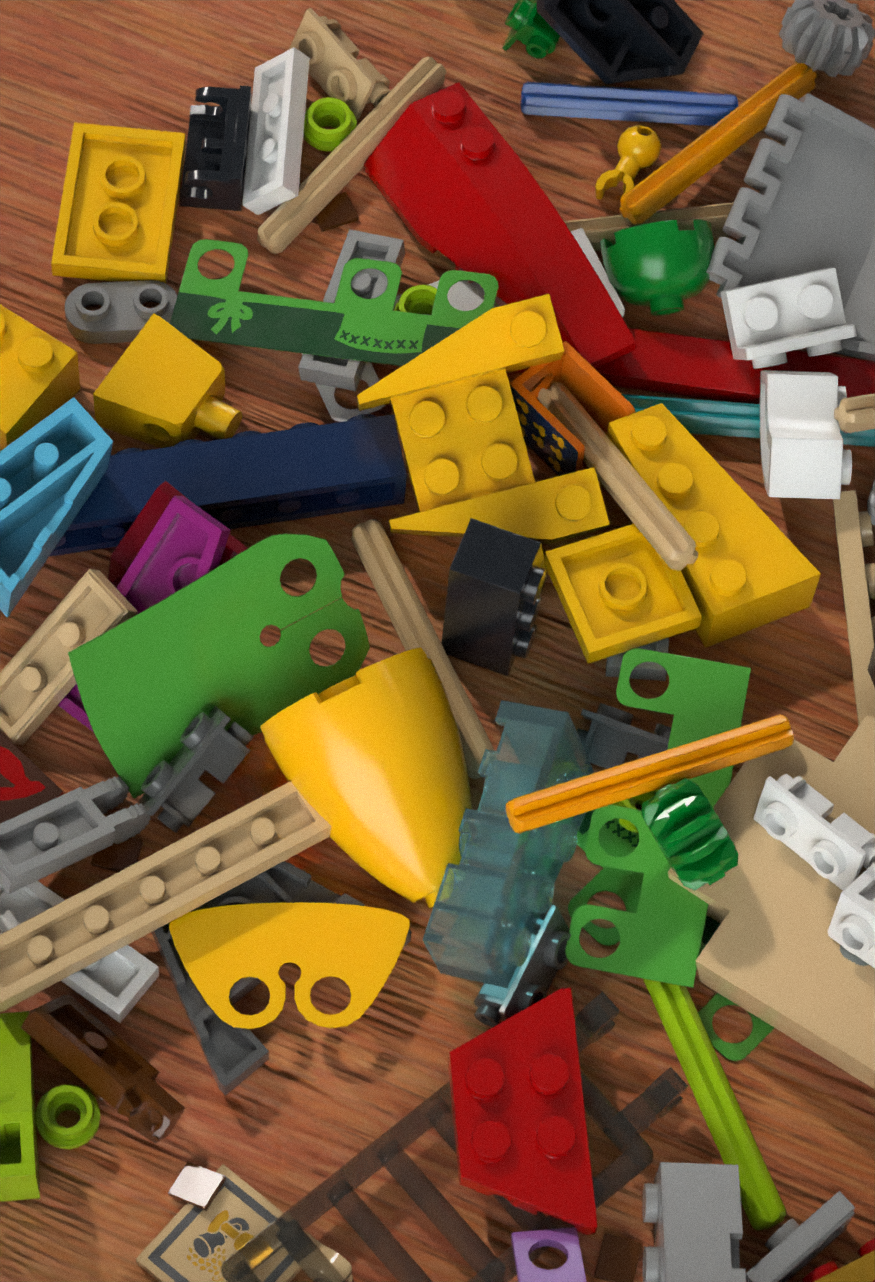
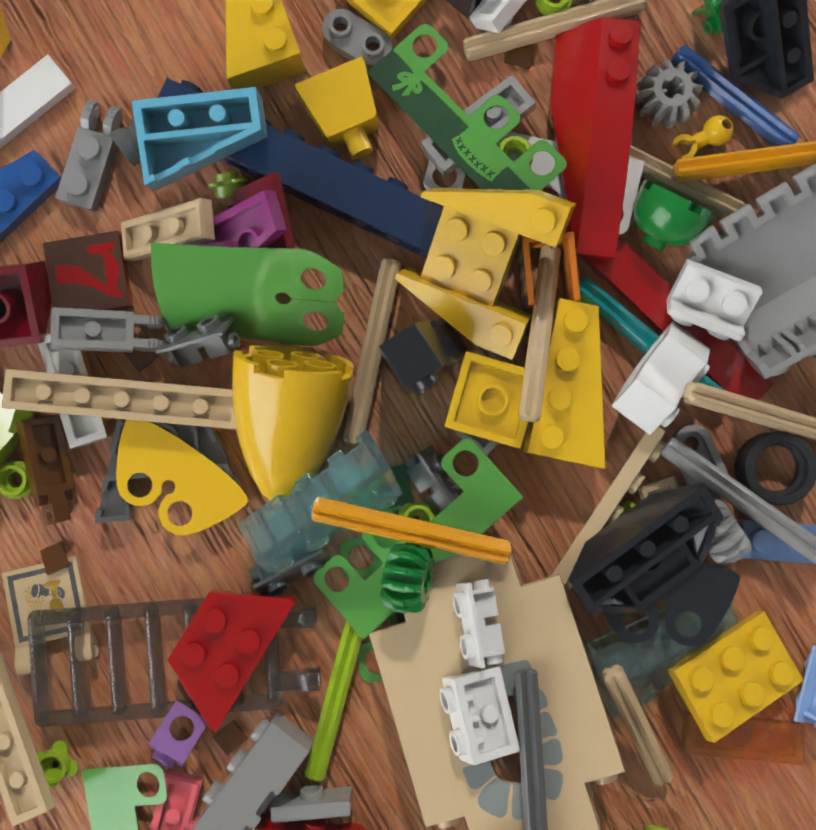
camera: 45 degrees right, 25 degrees up
(86, 558) = (226, 184): none -> lime plate
(552, 141) = (678, 84): none -> light grey gear

